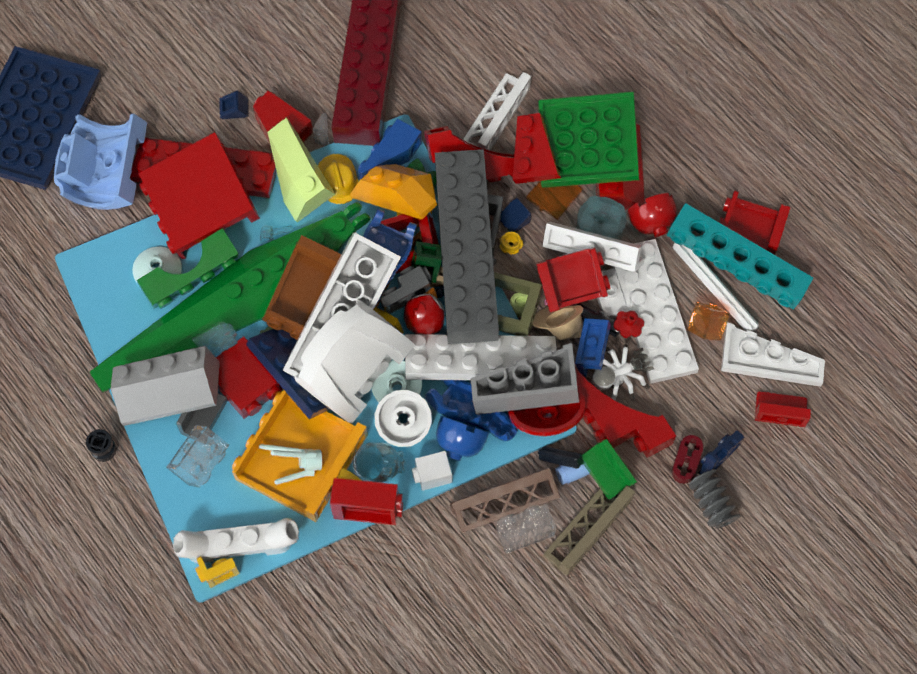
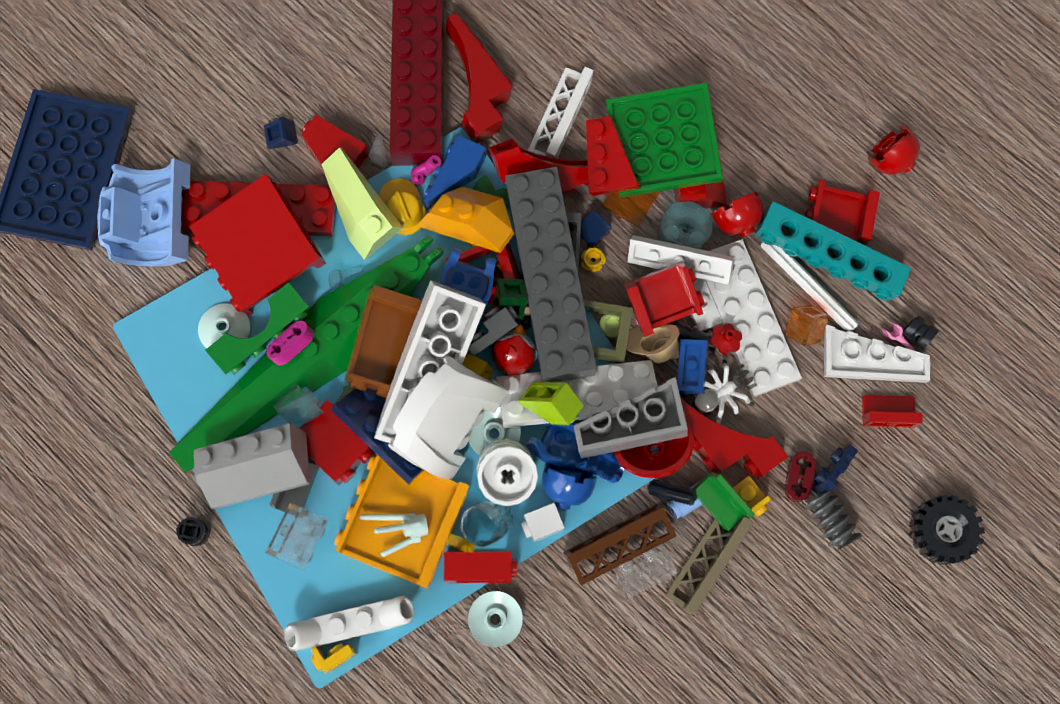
camera: 10 degrees left, 10 degrees up
(216, 283) = (290, 342): none -> dark pink beam
(363, 147) = (425, 169): none -> dark pink arm
(376, 543) = (495, 603): none -> light aqua dish
(429, 78) = (485, 82): none -> red arch
(454, 356) = (552, 402): none -> lime slope
(640, 472) = (752, 496): none -> yellow bracket
(796, 340) = (897, 335): none -> bright pink hand
(811, 175) = (896, 152): none -> red cylinder
(817, 338) = (920, 331): none -> black wheel
(831, 511) = (958, 524): none -> black wheel

